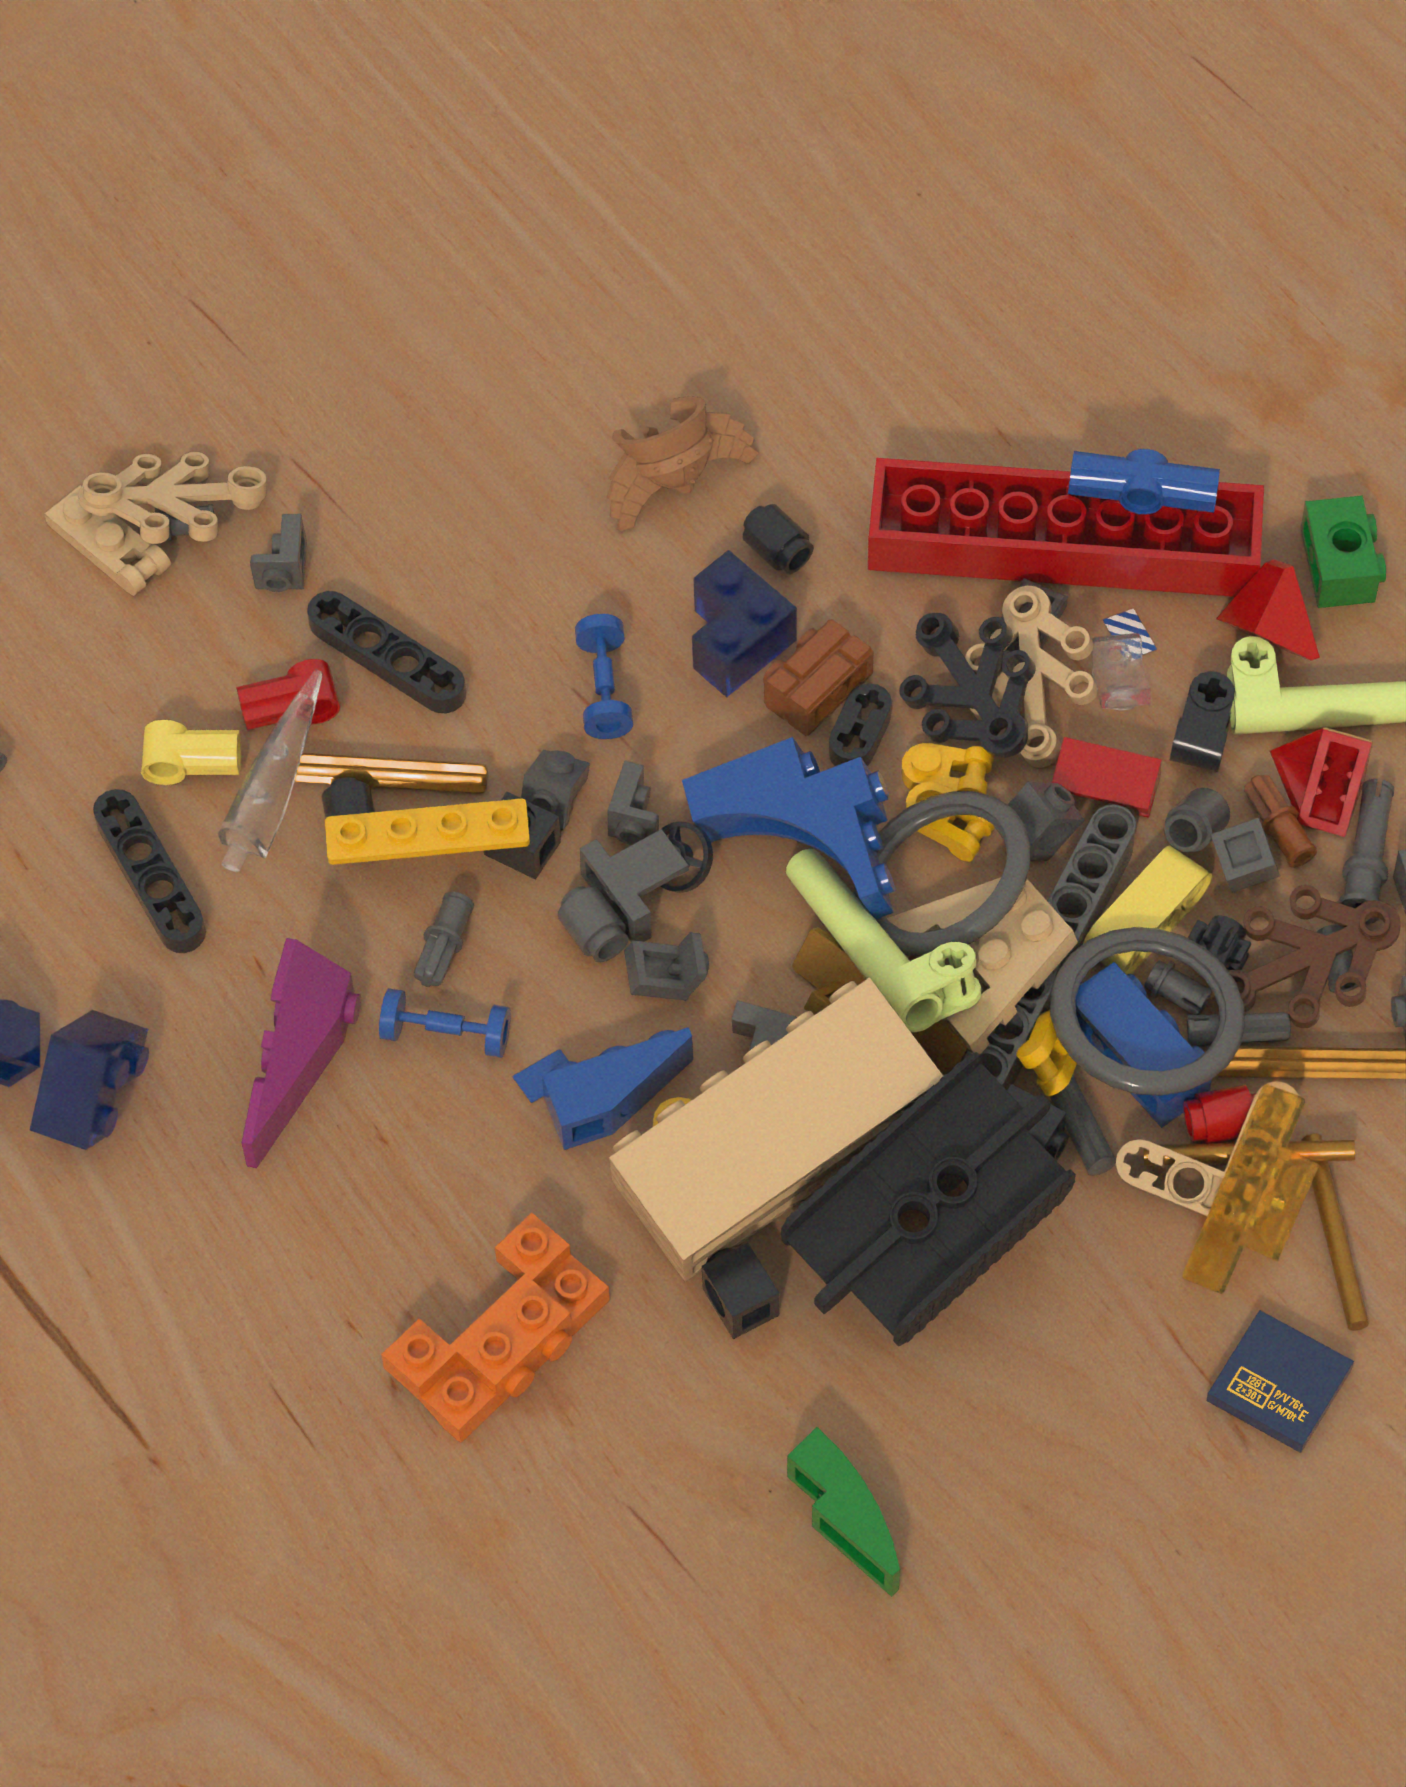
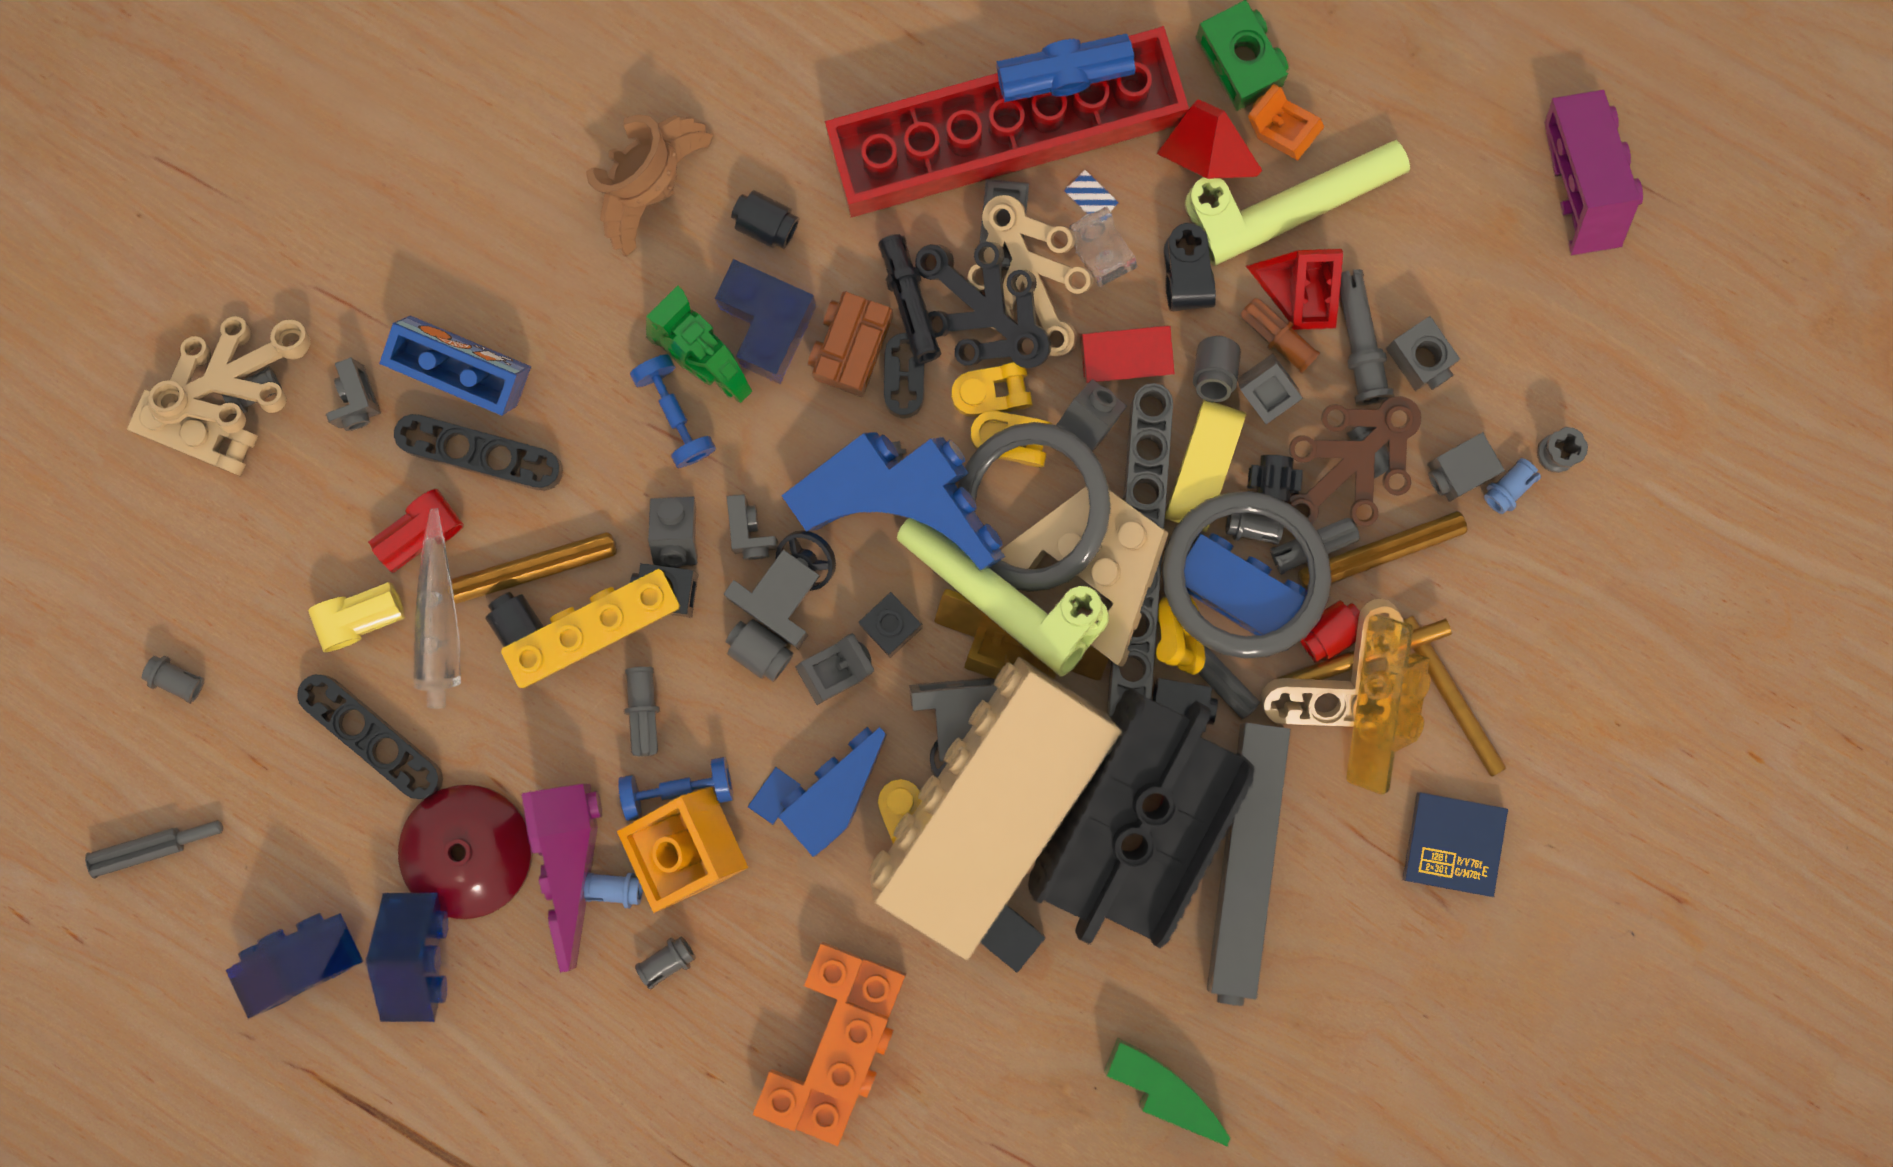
camera: 20 degrees left, 25 degrees up
(202, 1036) = (494, 843): none -> dark red dish
(343, 1101) = (613, 889): none -> medium blue pin
(355, 1188) = (665, 962): none -> dark grey pin
(402, 557) = (455, 365): none -> blue brick
(426, 1078) = (682, 849): none -> light orange slope
(651, 613) = (694, 345): none -> green piece
(743, 944) = (890, 624): none -> black brick
(896, 638) = (904, 283): none -> black pin
(1036, 1310) = (1248, 868): none -> dark grey brick
(1358, 625) = (1284, 123): none -> orange bracket

